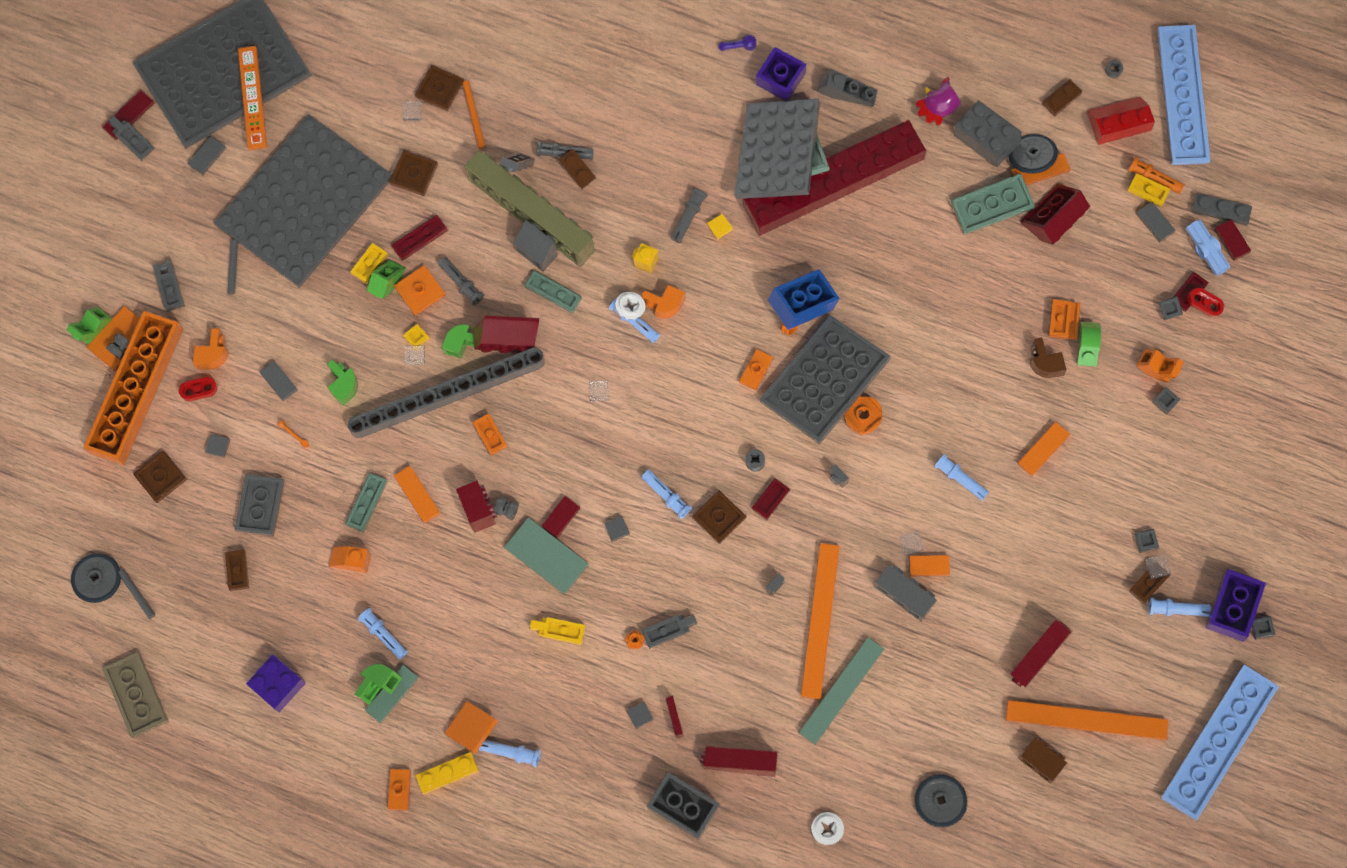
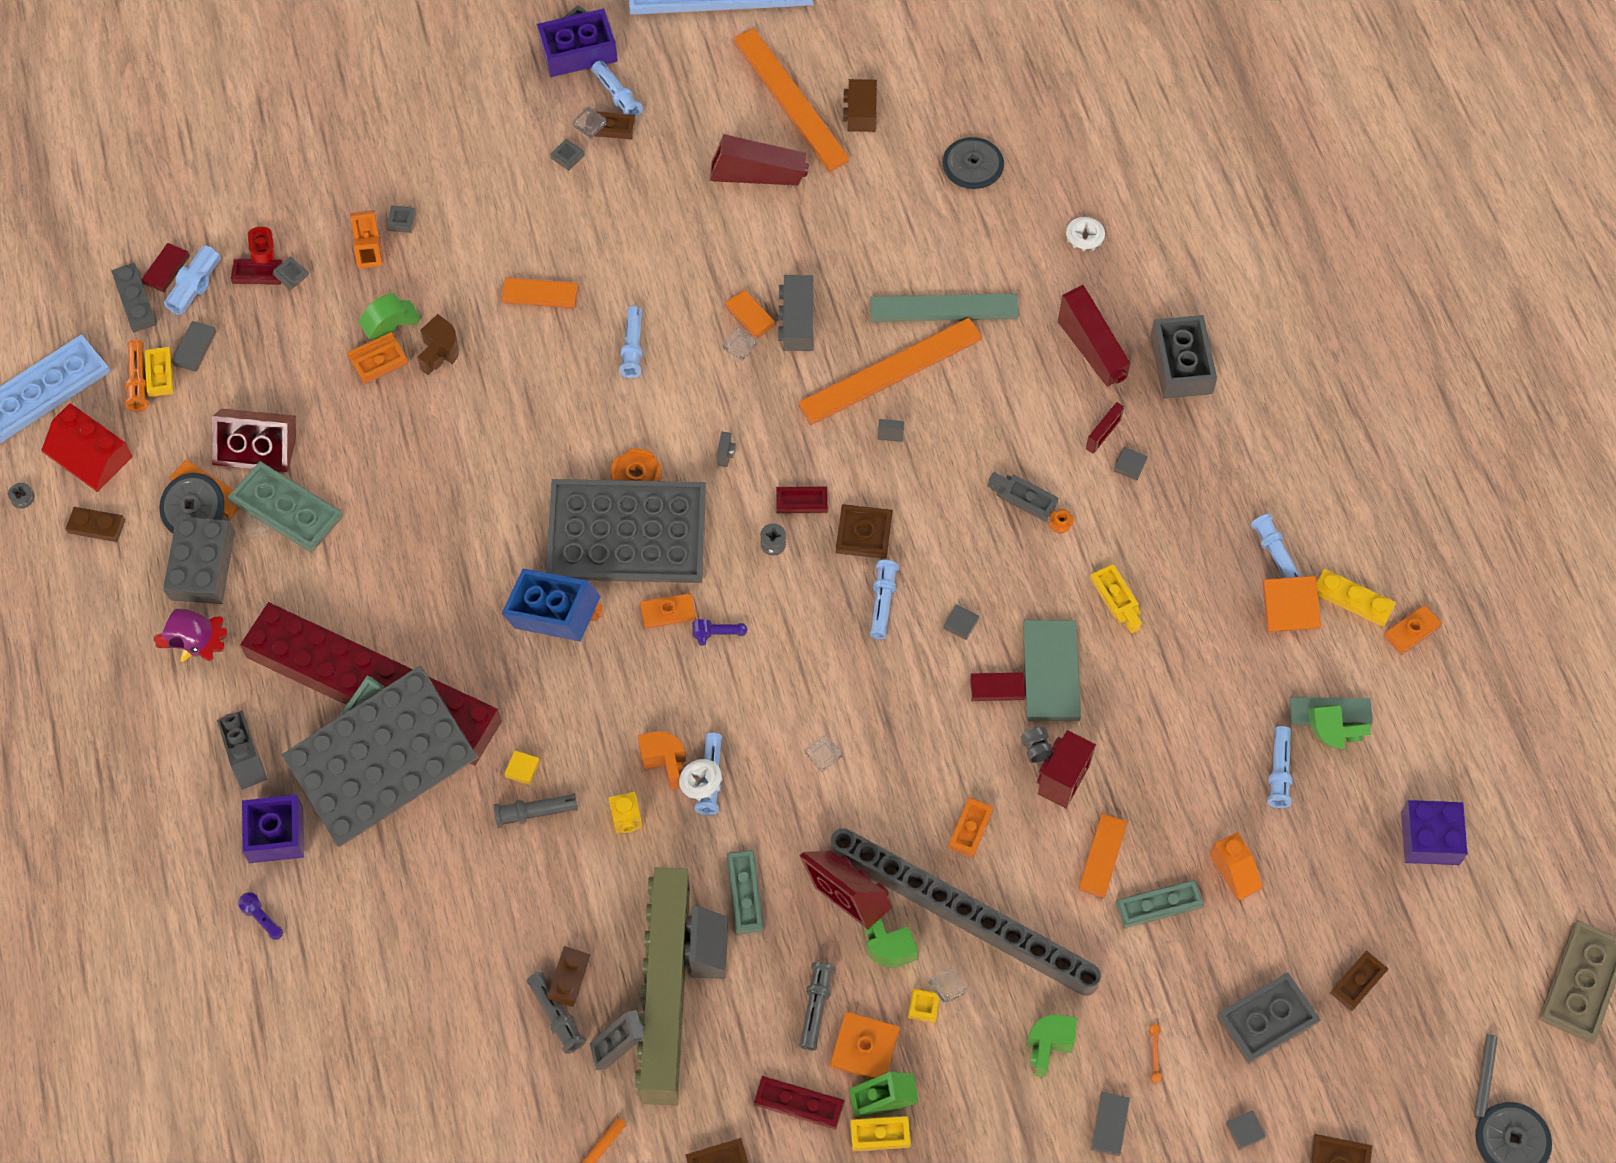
camera: 135 degrees left, 10 degrees down
(726, 379) = (704, 629): none -> dark purple piece

